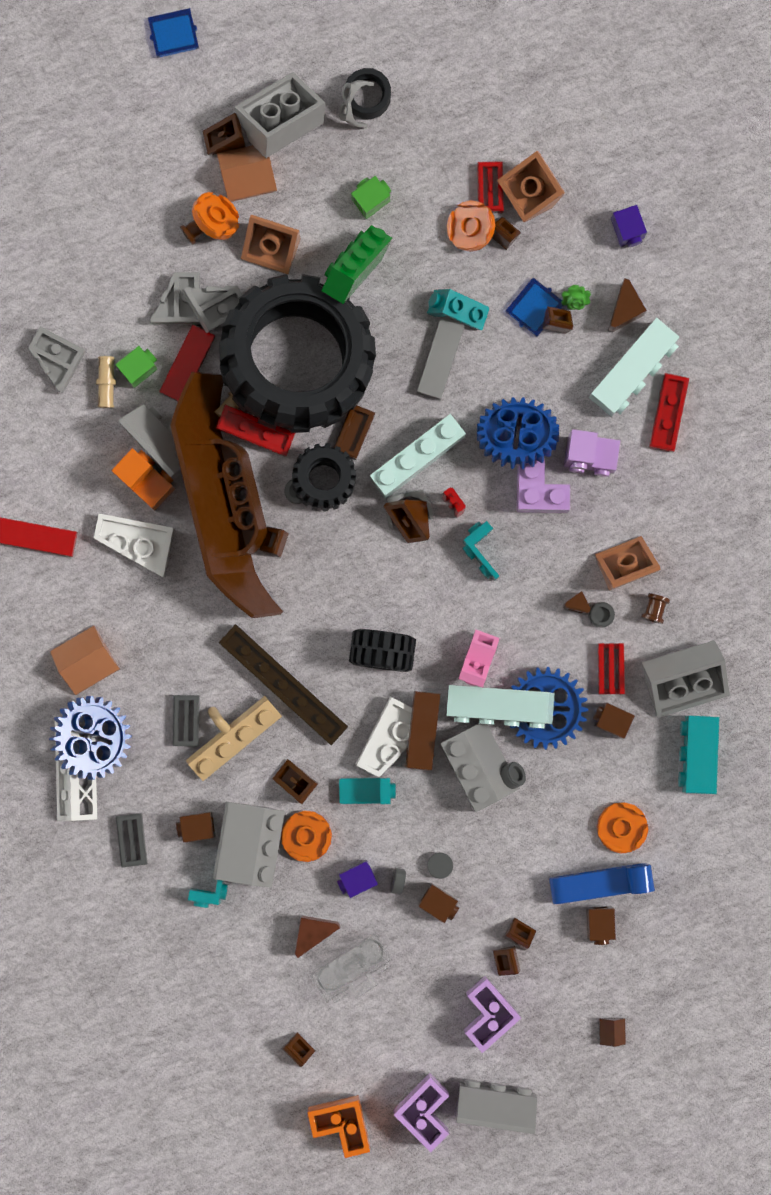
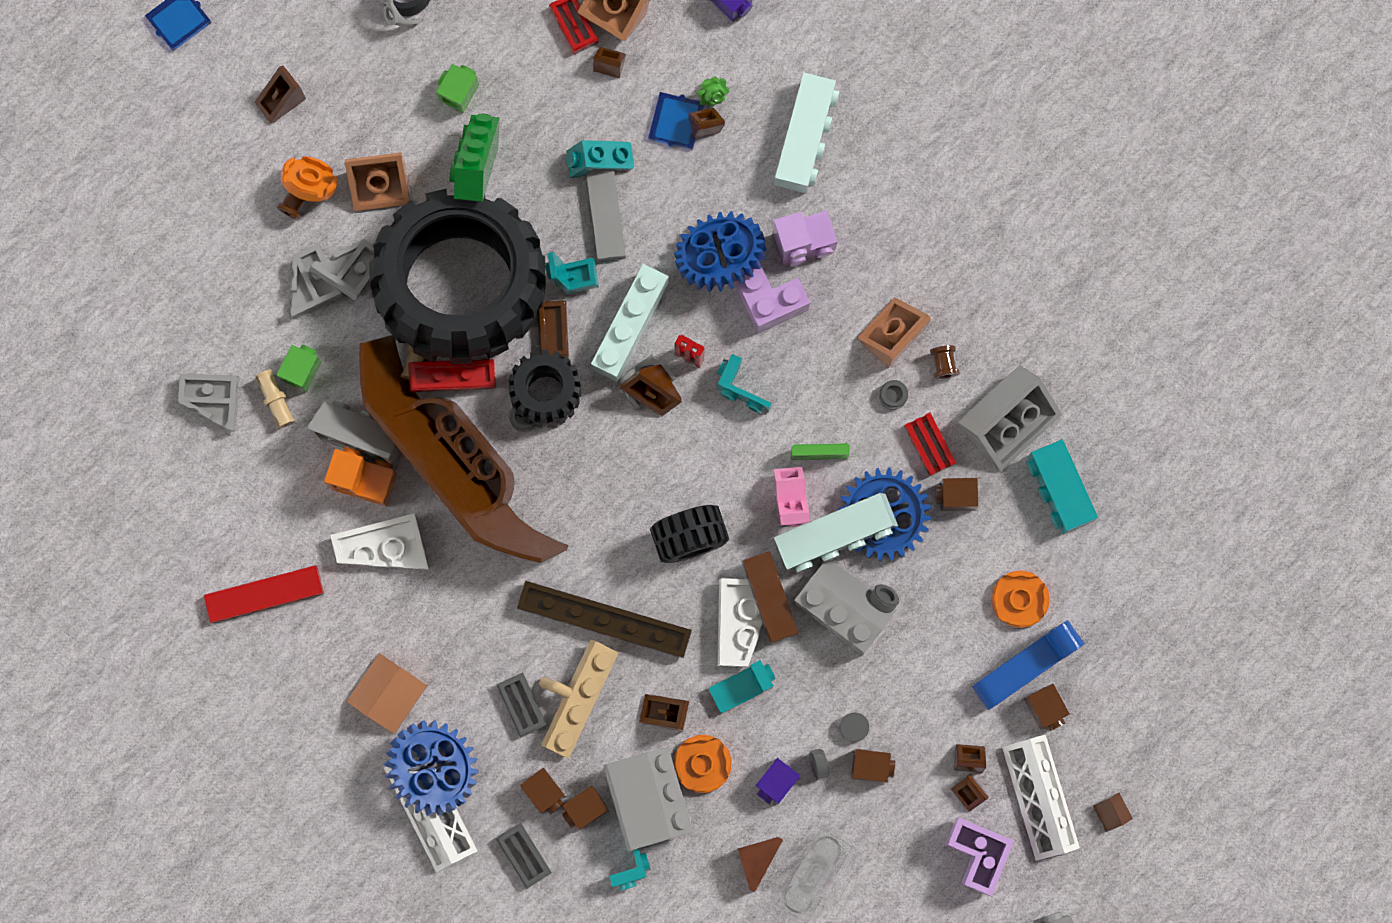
camera: 25 degrees left, 5 degrees down
(170, 798) = (543, 792): none -> reddish brown brick
(187, 360) = (348, 336): red tile -> none
(246, 173) = (320, 121): nougat slope -> none
(274, 541) = (525, 478): reddish brown slope -> none
(280, 114) = (327, 47): light grey slope -> none
(389, 395) = (572, 276): none -> teal bracket
(471, 226) = (572, 69): orange tile -> none
(519, 633) = (820, 451): none -> bright green tile
(566, 993) = (1051, 800): none -> white fence
(578, 604) = (864, 395): reddish brown slope -> none
(627, 307) = (769, 77): reddish brown slope -> none
(669, 412) = (862, 162): red tile -> none

